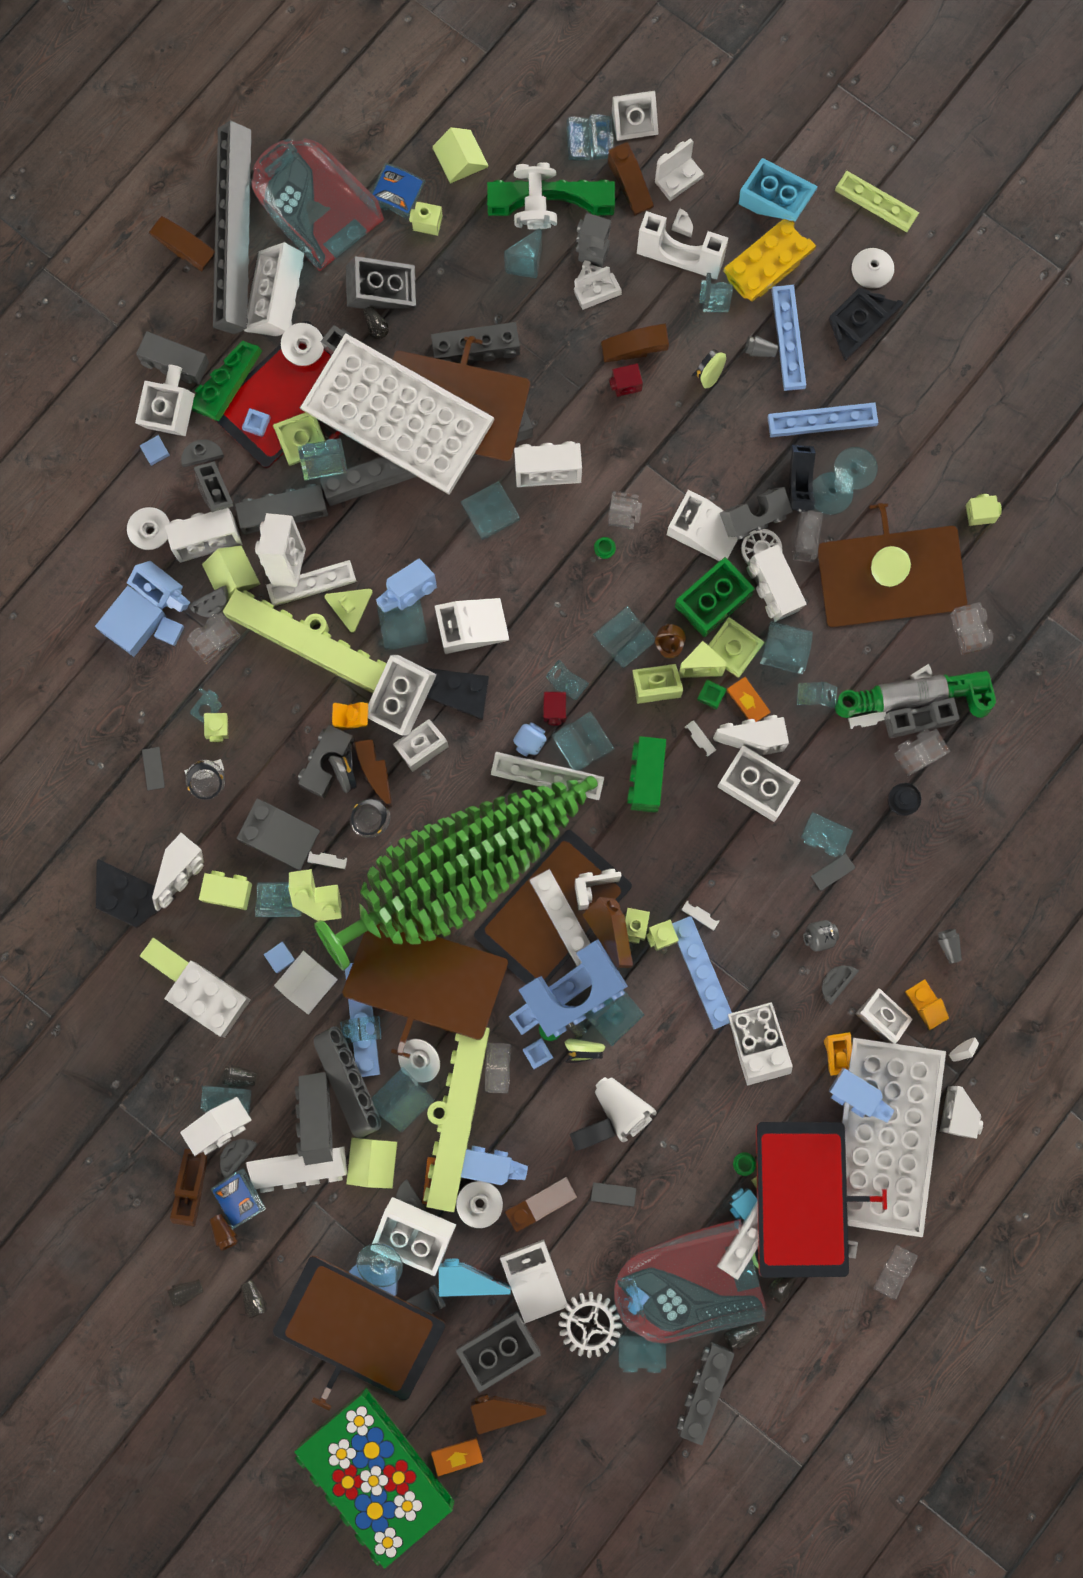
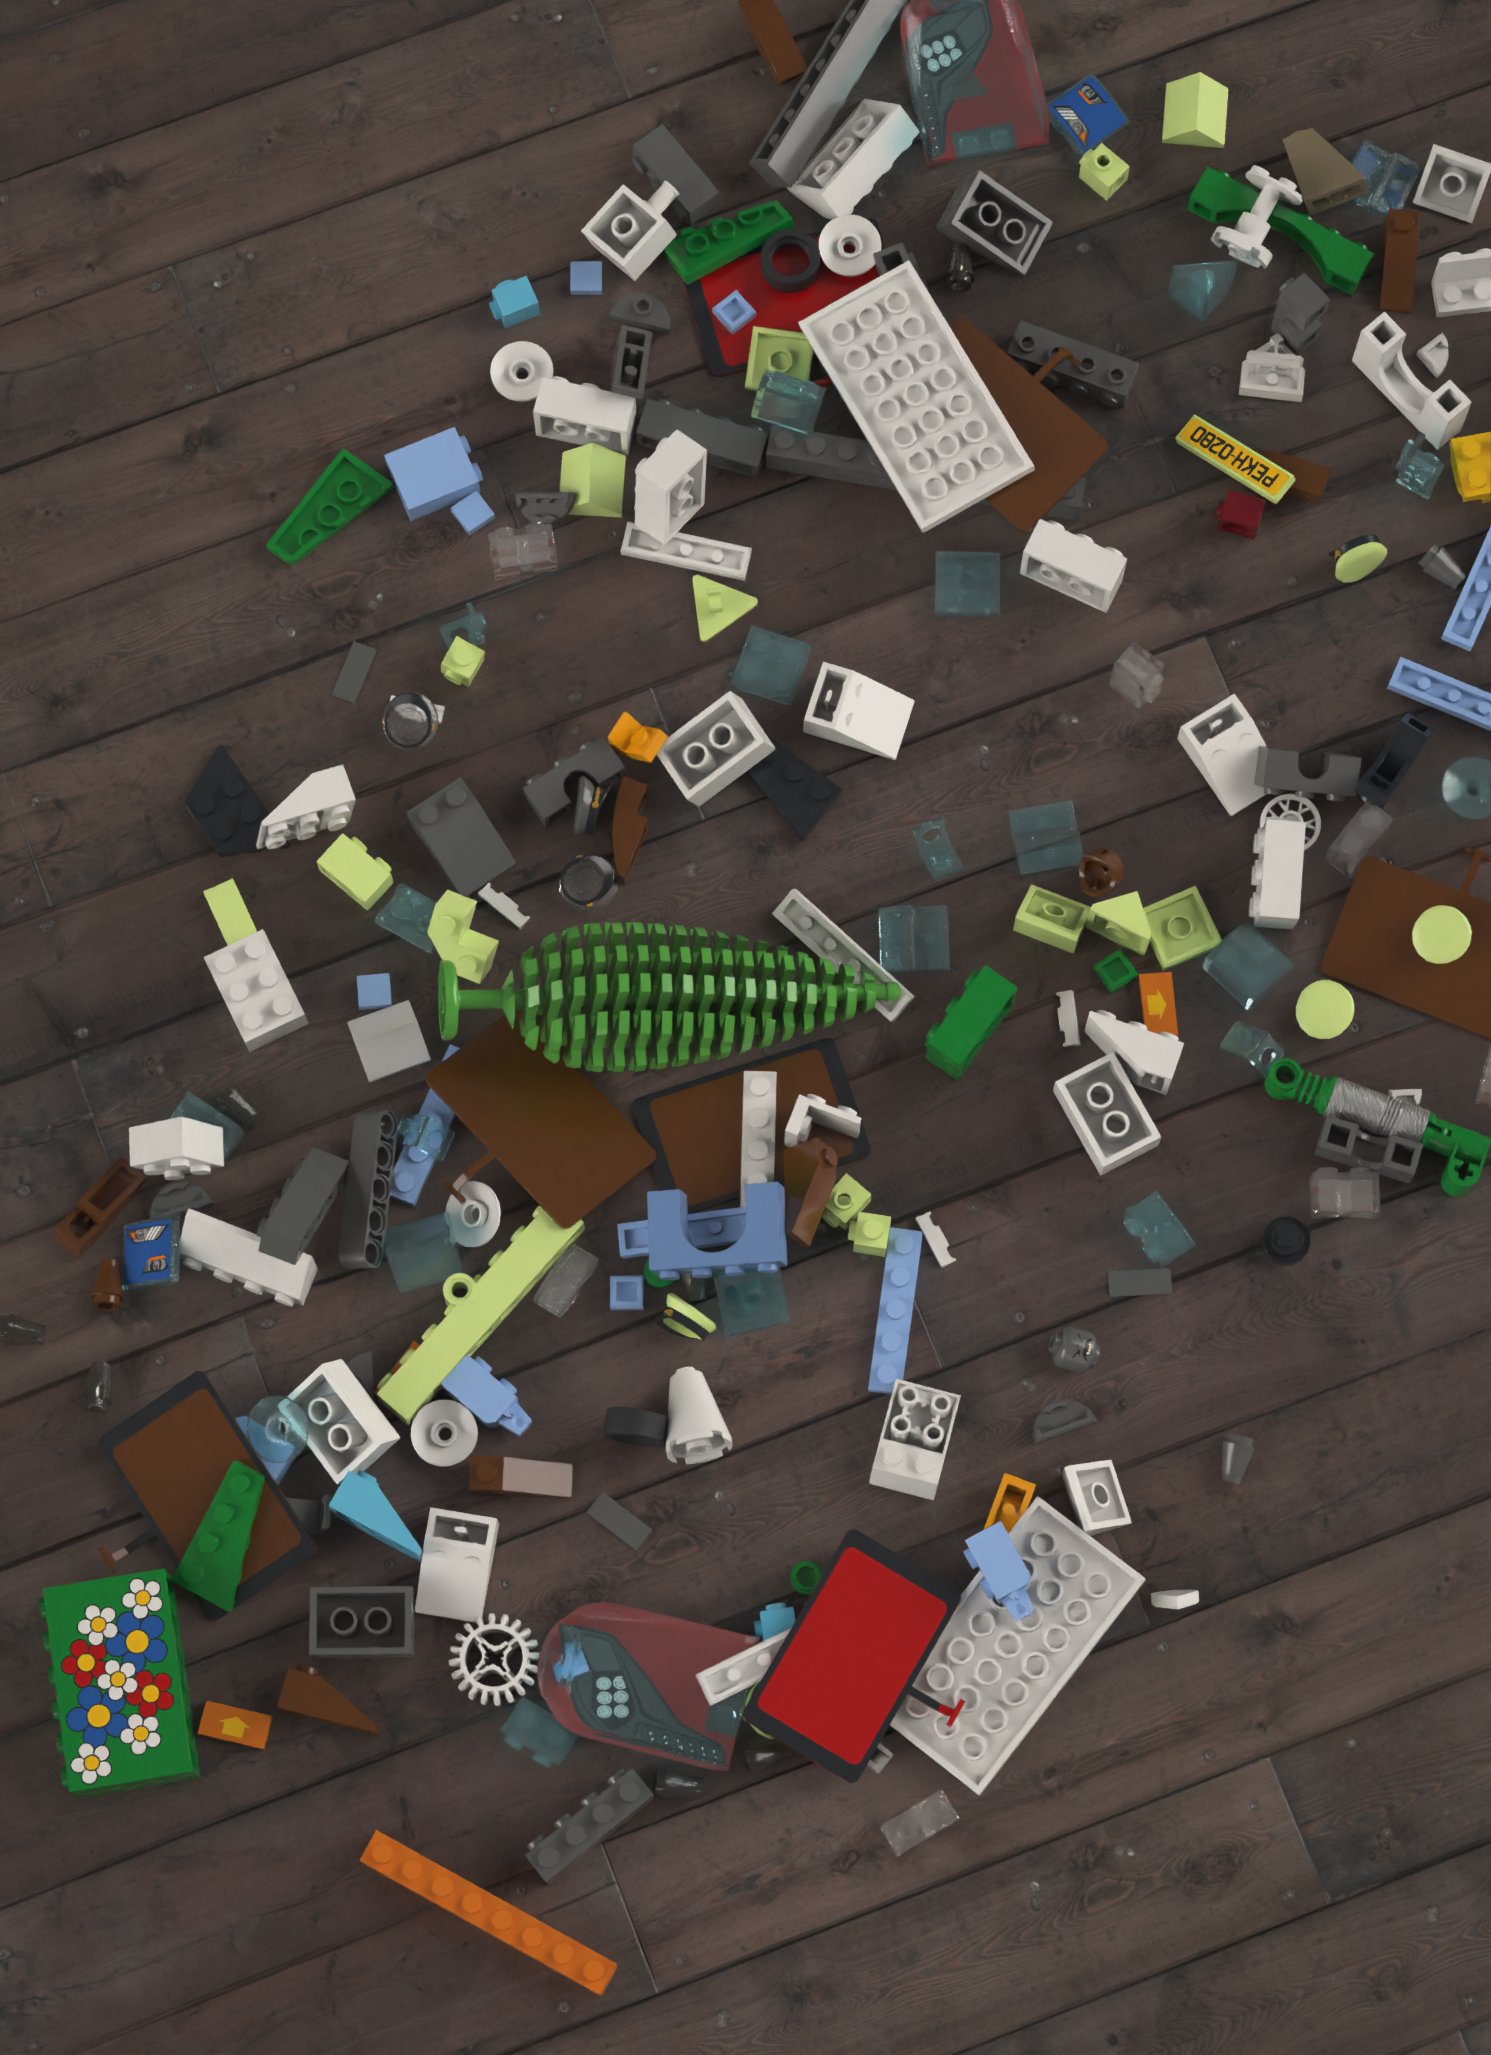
camera: 30 degrees right, 5 degrees down
(79, 673) = (332, 503): none -> green wing
(119, 488) = (514, 302): none -> medium azure brick
(157, 586) = (490, 449): light blue hinge -> none
(270, 357) = (784, 238): none -> black tyre
(303, 640) = (634, 614): yellowish green hinge -> none
(371, 1163) = (341, 1307): yellowish green slope -> none
(384, 1349) = (218, 1549): none -> green wing
(407, 586) = (803, 620): light blue hinge -> none
(421, 745) = (705, 829): white slope -> none
(529, 739) = (847, 896): light blue head -> none
(555, 708) = (902, 875): dark red brick -> none
(556, 148) = (1322, 172): none -> dark tan slope
(604, 547) = (1087, 711): green plate -> none
(605, 349) = (1235, 459): none -> tile
(677, 1482) = (488, 1913): none -> orange brick
(714, 597) = (1190, 849): green brick -> none
(826, 501) = (1416, 815): clear light blue dish -> none
(847, 648) = (1324, 1009): none -> yellowish green piece
(866, 719) = (1298, 1115): white piece -> none
(927, 1005) = (1161, 1515): light orange slope -> none
(960, 1114) = (1117, 1673): white slope -> none

